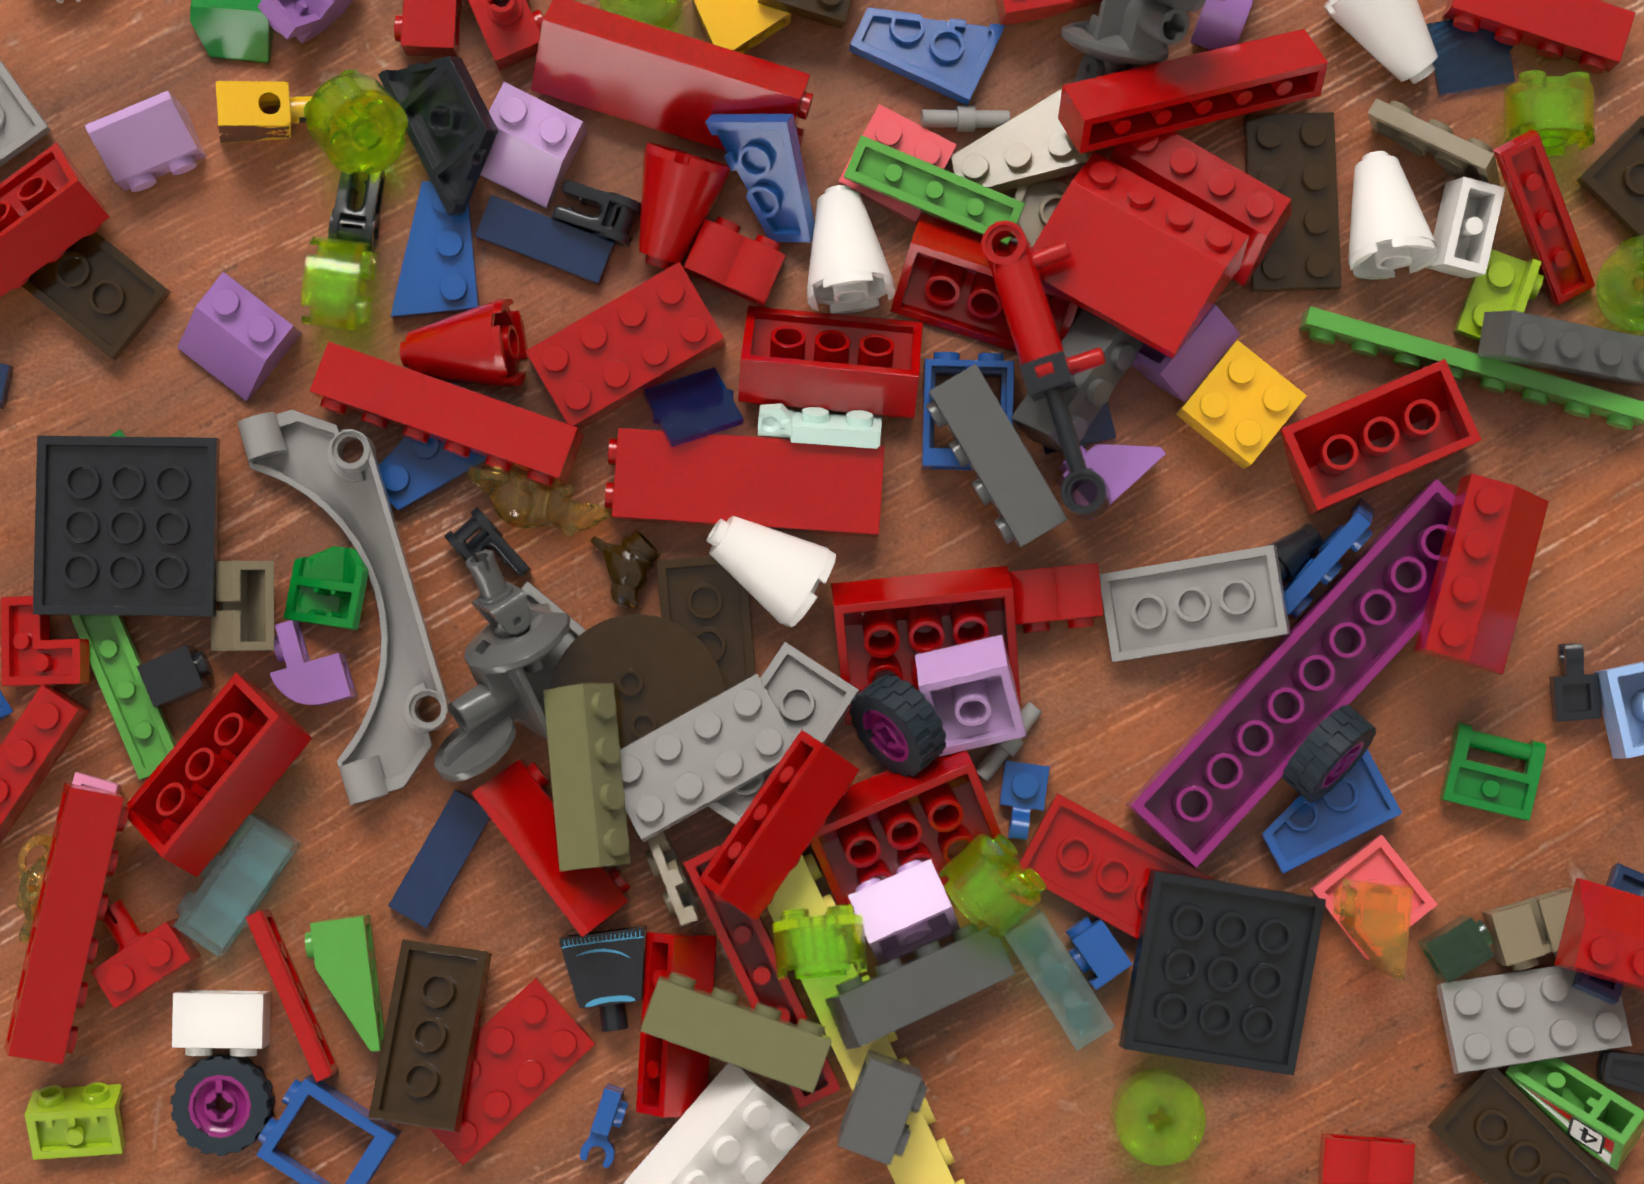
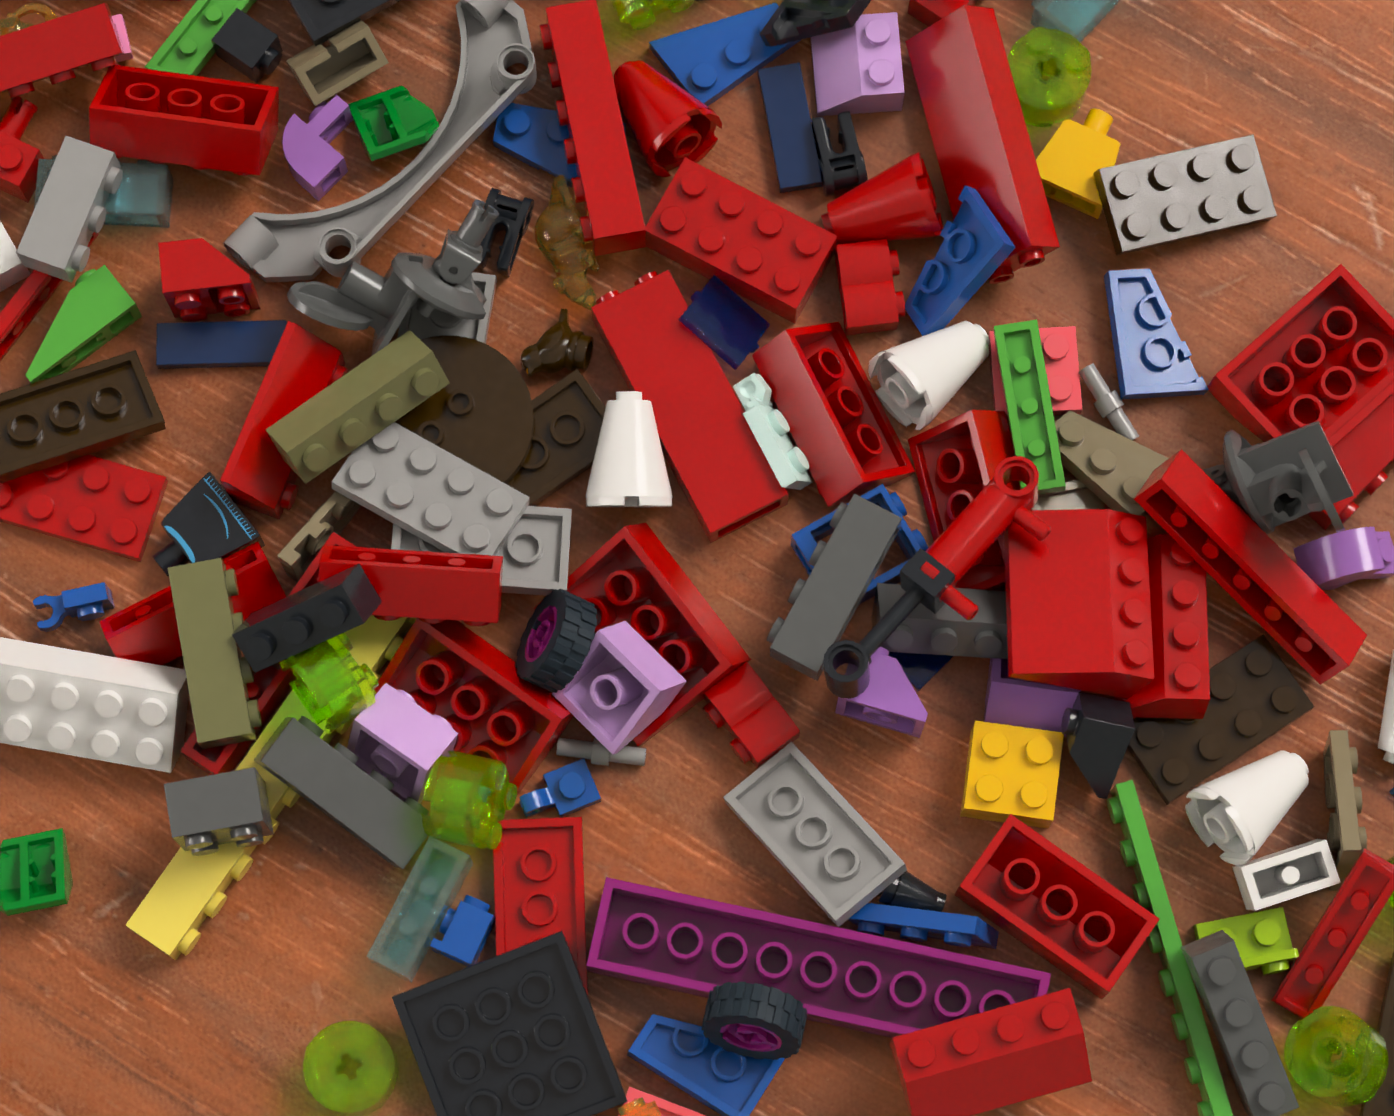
camera: 60 degrees right, 10 degrees down
(243, 926) = (70, 209): none -> light grey brick
(375, 846) = (203, 281): none -> red slope
(762, 934) = (307, 618): none -> black brick
(1260, 312) = (1098, 737): none -> black slope

